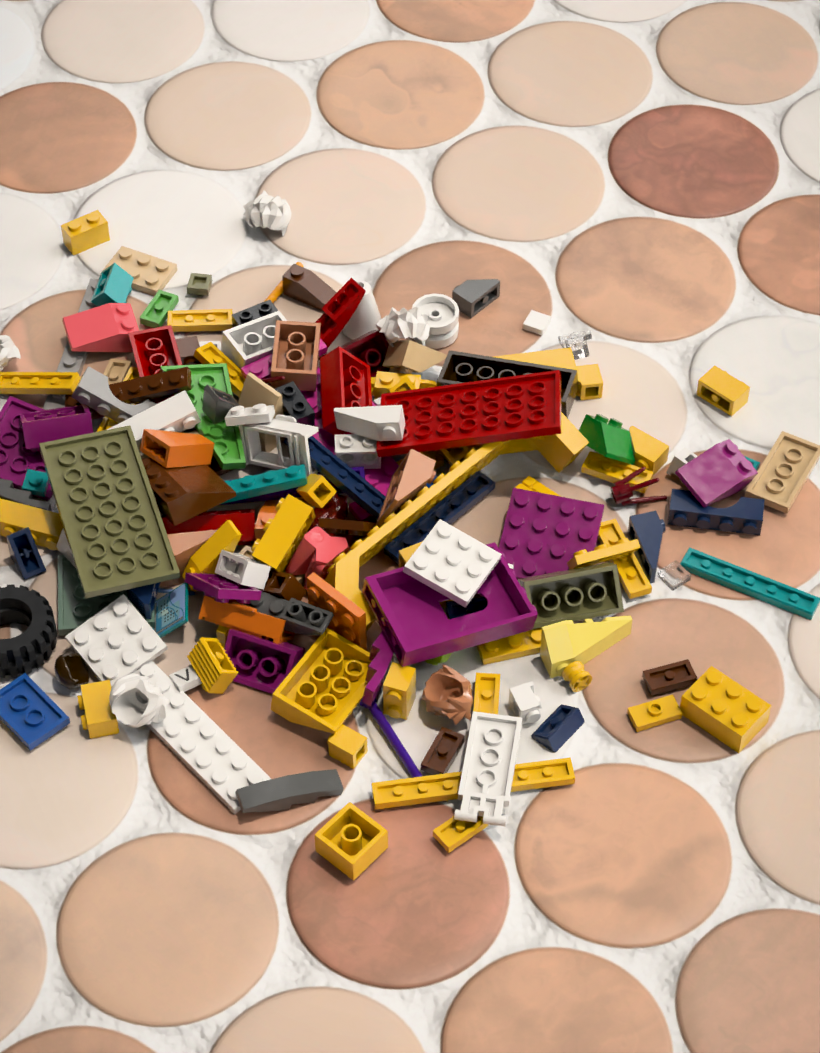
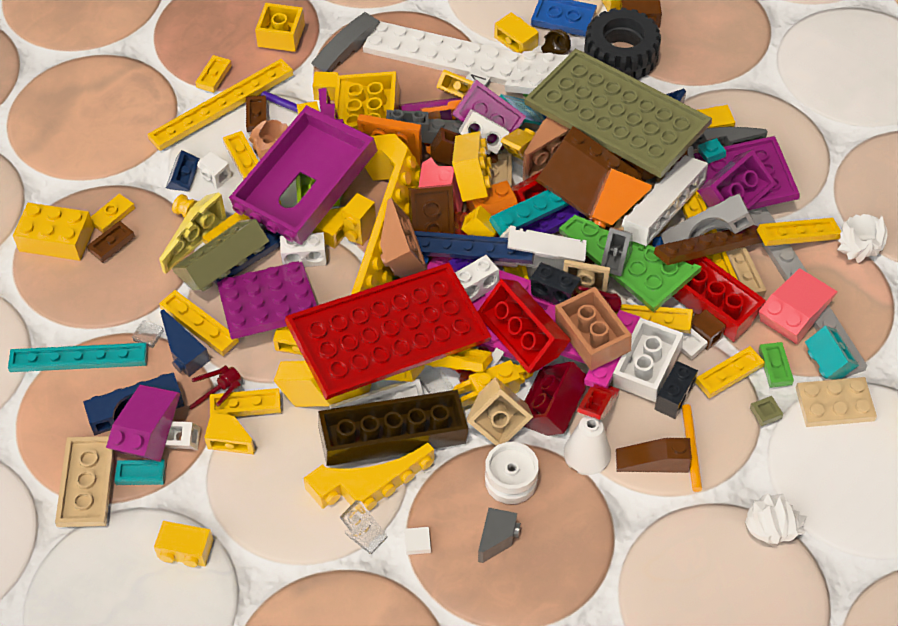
camera: 150 degrees right, 5 degrees up
(137, 701) = (487, 32): white hair -> none
(252, 415) = (580, 246): white plate -> none
(373, 422) = (465, 277): white slope -> none
(404, 325) = (521, 416): white hair -> none
(452, 563) = (316, 189): white plate -> none
(488, 768) = (212, 105): white hinge -> none
(603, 553) = (208, 294): yellow plate -> none
(608, 438) = (262, 407): green slope -> none

